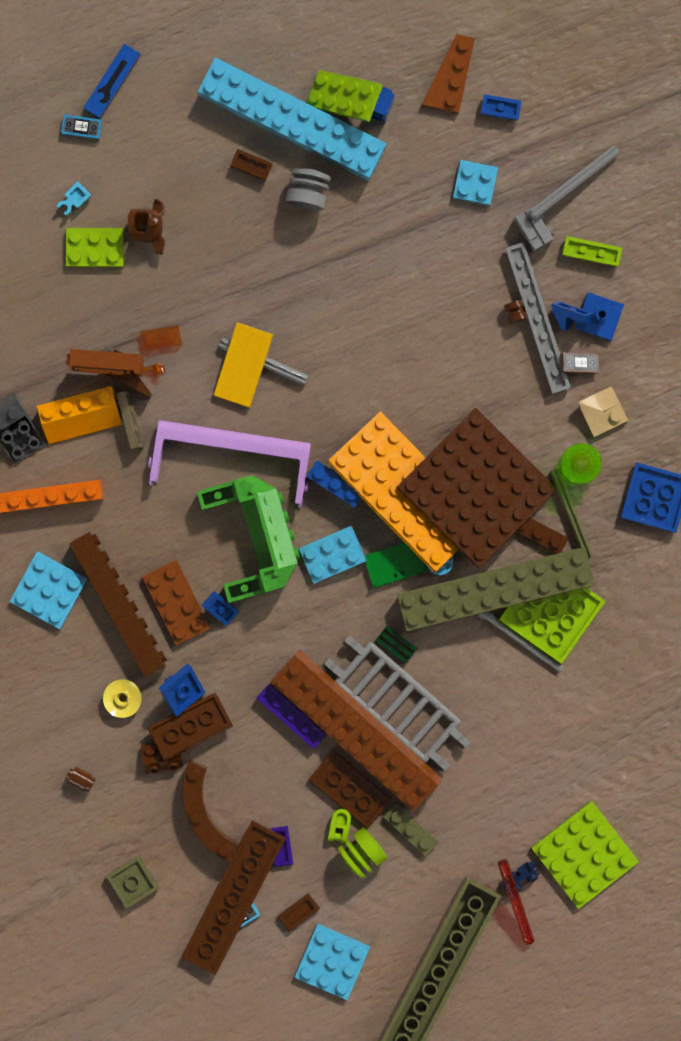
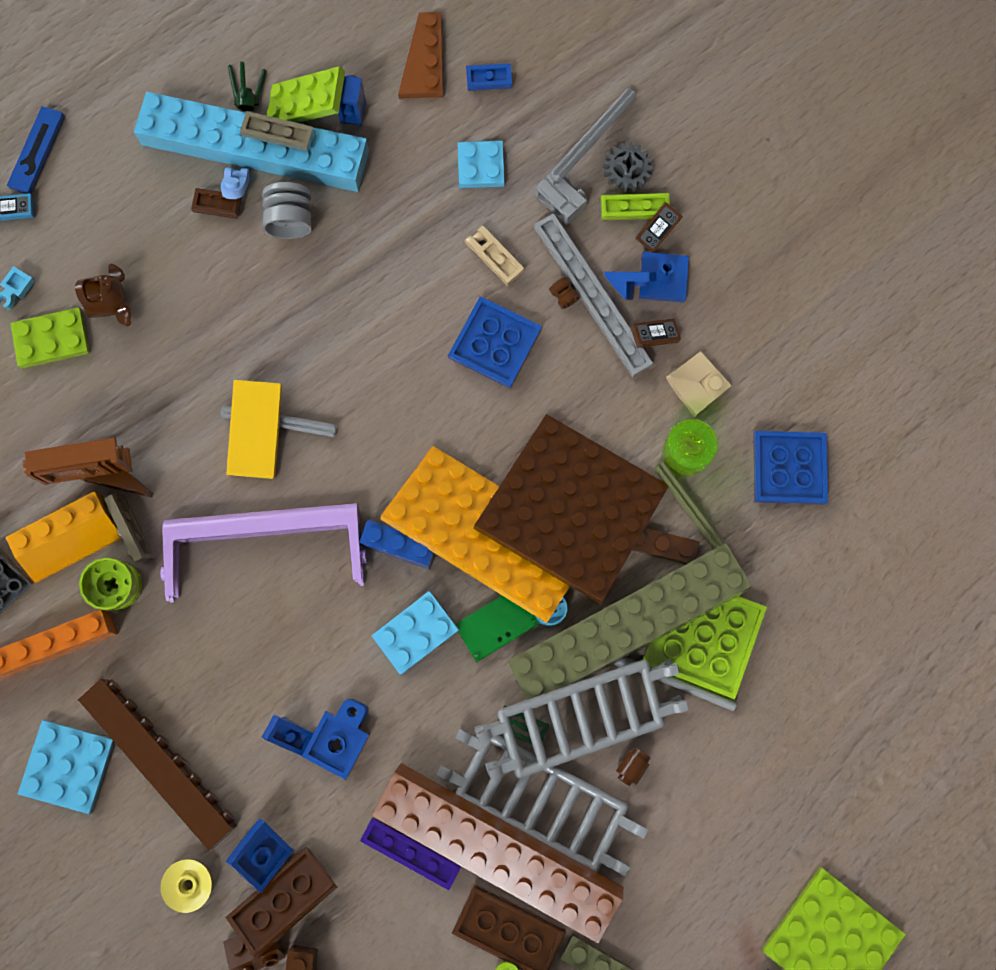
camera: 10 degrees left, 10 degrees down
(98, 462) = (97, 588): none -> lime wheel
(158, 368) = (154, 461): clear orange hand -> none
(161, 338) = (149, 423): clear orange plate -> none
(176, 602) = (232, 742): dark orange plate -> none
(264, 613) = (347, 729): none -> blue plate
(267, 531) = (327, 622): bright green wedge -> none
(268, 157) = (235, 183): none -> light blue plate
(294, 78) = (245, 99): none -> dark green plant
(315, 123) = (277, 131): none -> dark tan plate
(449, 338) = (495, 342): none -> blue plate
(467, 265) = (495, 255): none -> tan plate
(471, 694) = (633, 767): none -> reddish brown brick
(501, 657) = (503, 726): none -> light grey bar
(587, 213) = (639, 166): none -> dark grey gear
(606, 275) = (658, 227): none -> tile

